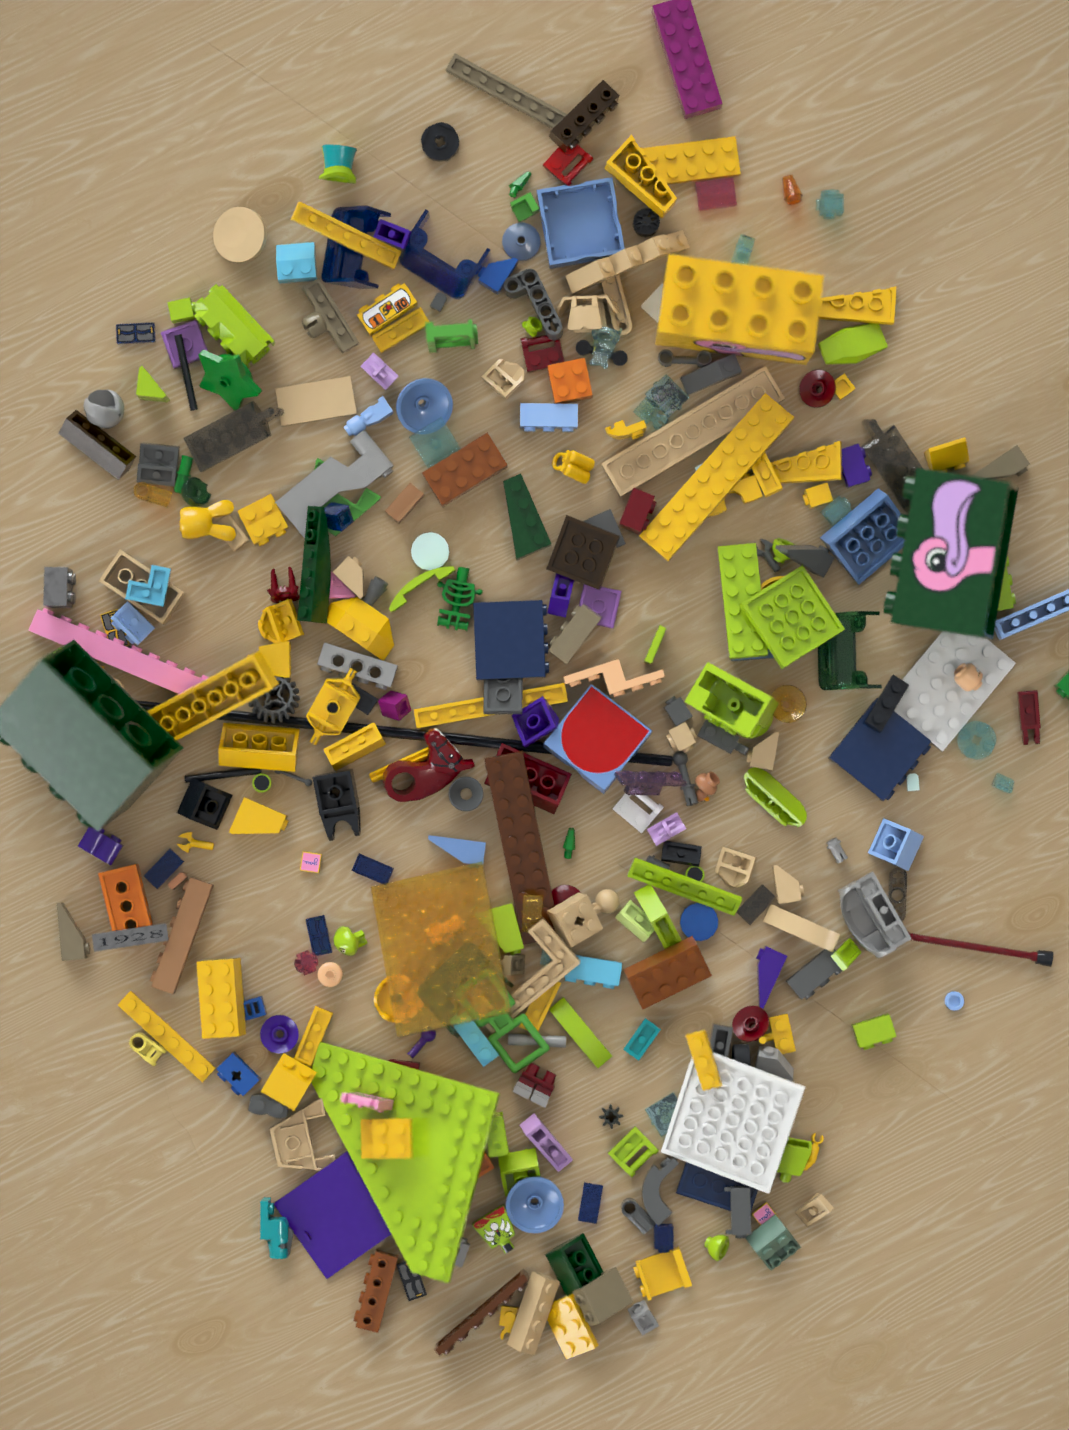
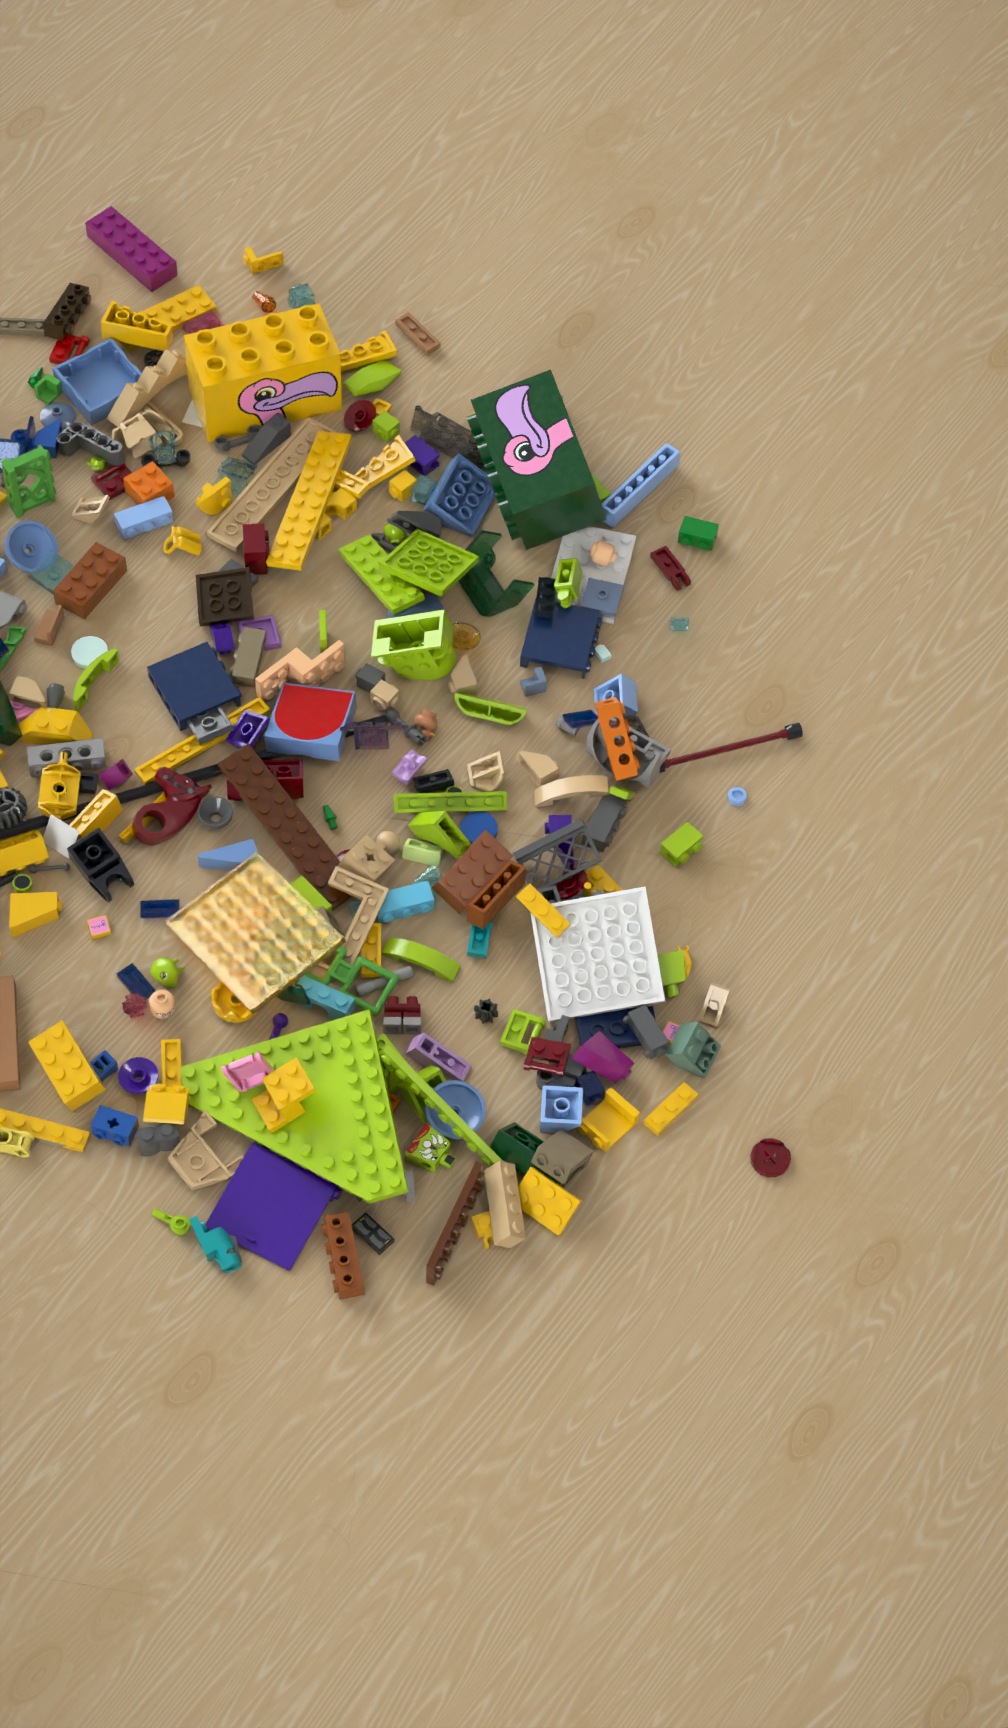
camera: 30 degrees left, 30 degrees down
(253, 1192) = (179, 1224): none -> lime plate
(314, 754) = (59, 835): none -> white sticker
(461, 581) = (132, 675): green torso -> none
(520, 1213) = (433, 1100): none -> lime plate
(526, 525) = (161, 594): dark green wedge -> none
(531, 911) = (323, 870): clear yellow slope -> none
(590, 1202) = (507, 1093): clear blue tile -> none
(626, 1248) = (560, 1108): none -> light blue slope
(627, 953) = (430, 874): none -> clear light blue cone
(636, 815) = (375, 771): white plate -> none
(641, 1190) = (547, 1051): none -> dark red plate
(643, 1317) = (611, 1165): light grey bracket -> none
(662, 1113) = (532, 992): clear light blue piece -> none
(675, 1009) = (496, 894): none -> dark orange brick
(688, 1218) = (604, 1058): none -> magenta slope
(717, 1246) = (644, 1075): lime brick -> none
(721, 738) = (421, 686): dark grey plate -> none
(724, 1286) = (670, 1109): none -> yellow plate
(754, 980) = (554, 840): none -> dark grey fence
(756, 904) = (521, 795): clear smoke plate -> none
(785, 1374) = (770, 1157): none -> dark red tile
(809, 140) = (262, 263): none -> yellow bracket
(829, 787) = (535, 684): none -> sand blue panel
(837, 414) = (386, 426): none -> lime brick
(852, 852) = (580, 718): none -> clear blue tile
(862, 915) = (629, 765): none -> orange brick
(915, 699) = (568, 581): none -> lime brick
(927, 306) = (417, 333): none -> medium nougat plate
(942, 725) = (602, 596): none -> sand blue plate
(970, 749) = (634, 609): clear light blue plate -> none

